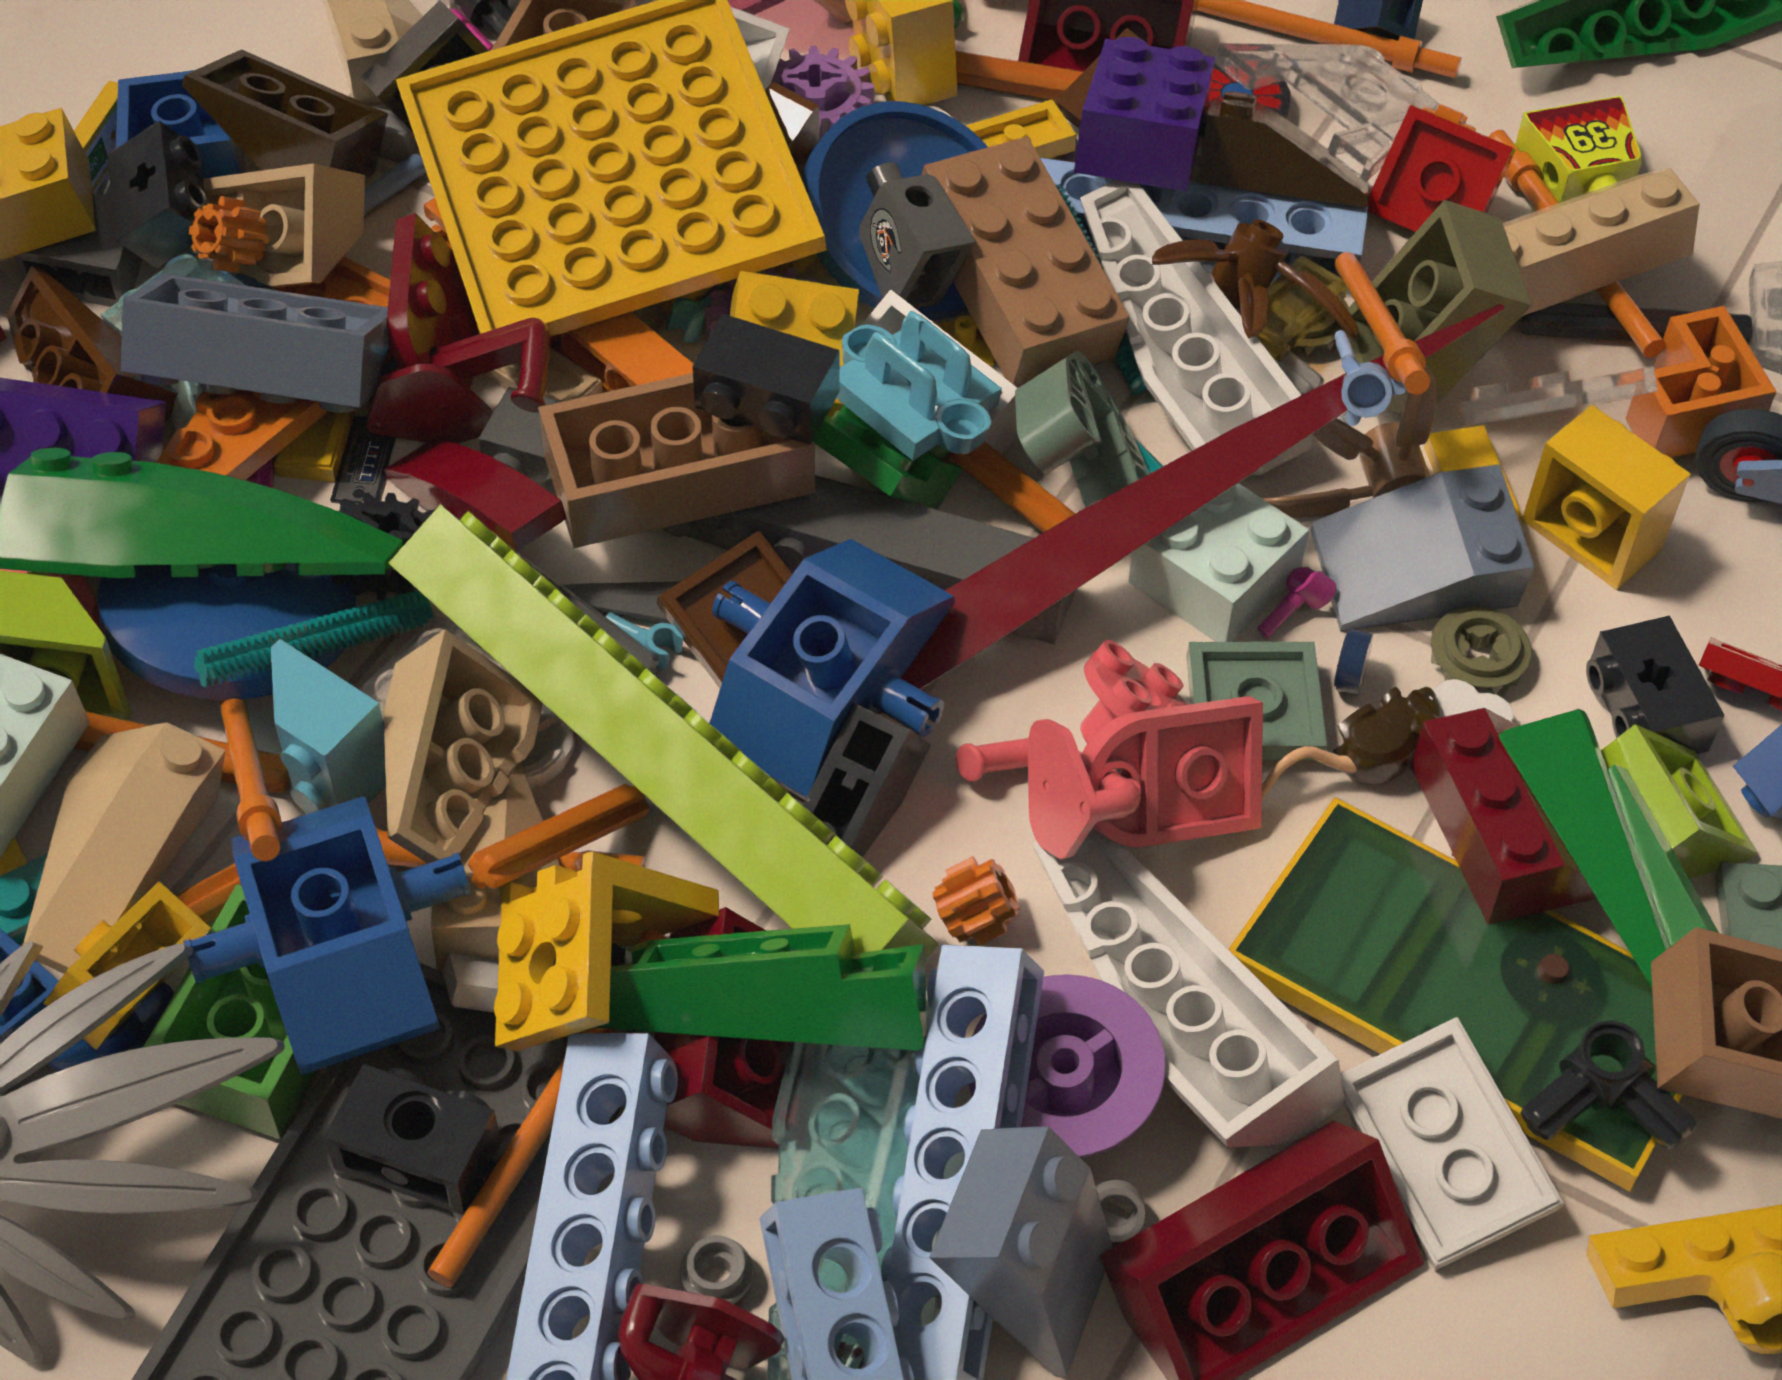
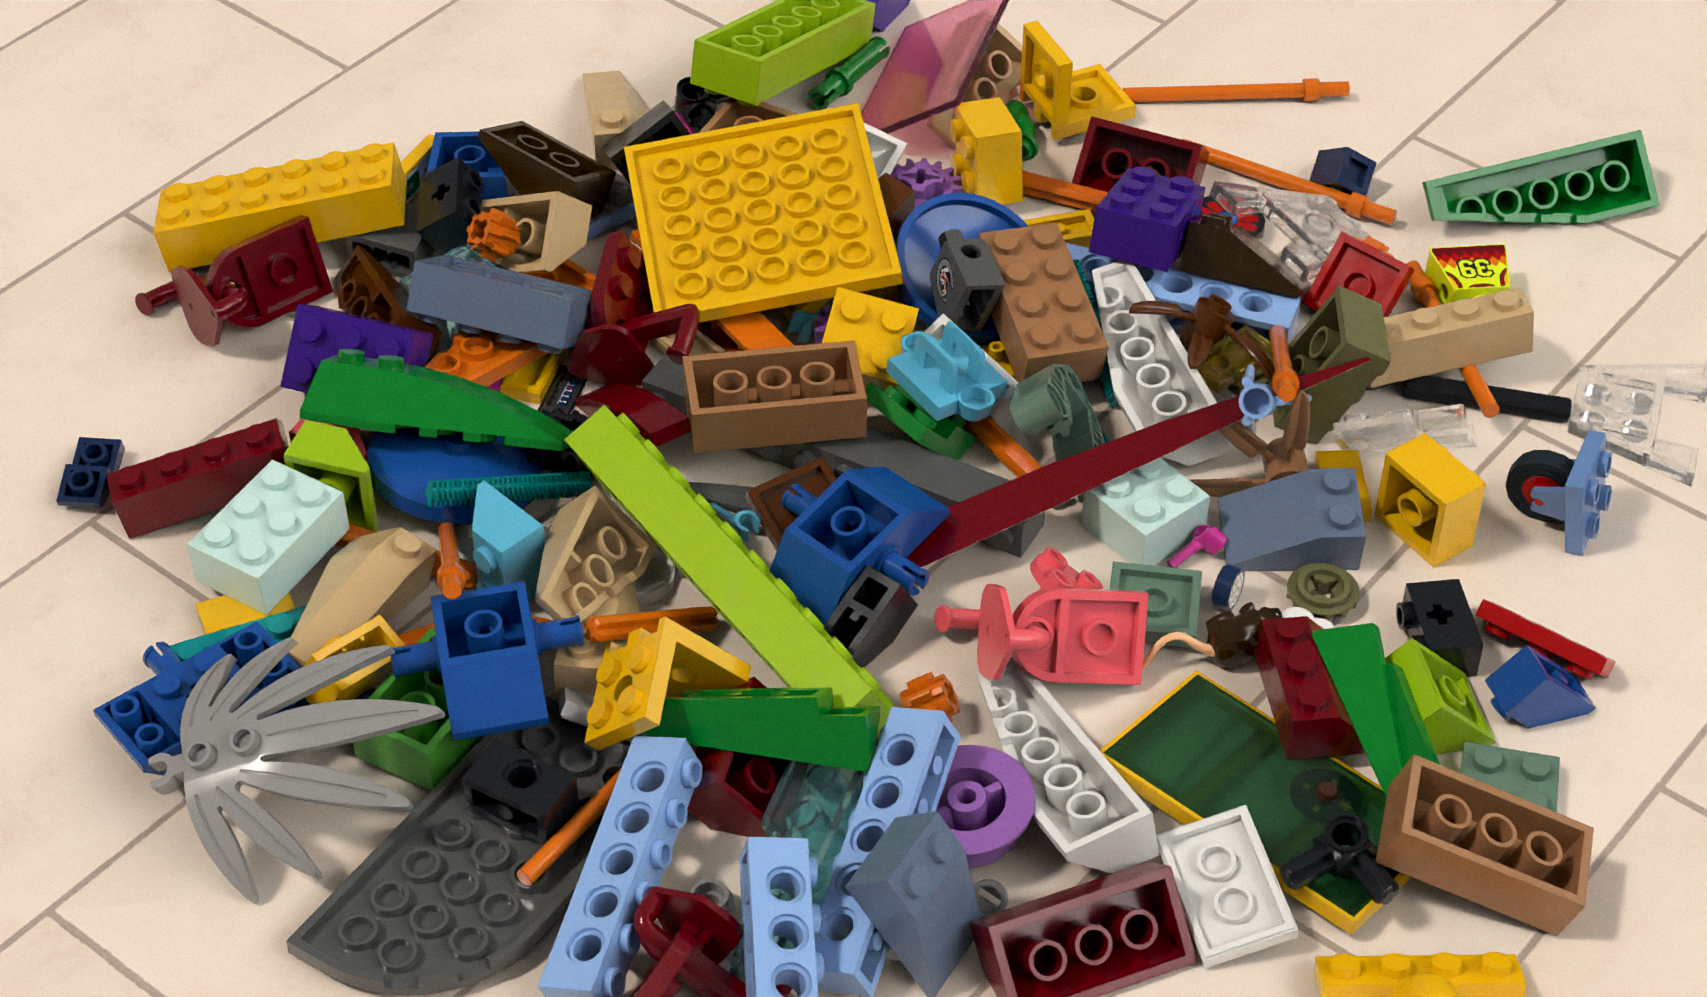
camera: 10 degrees right, 10 degrees down
(766, 379) = (840, 351): black brick -> none
(1698, 377) = (1522, 425): orange brick -> none

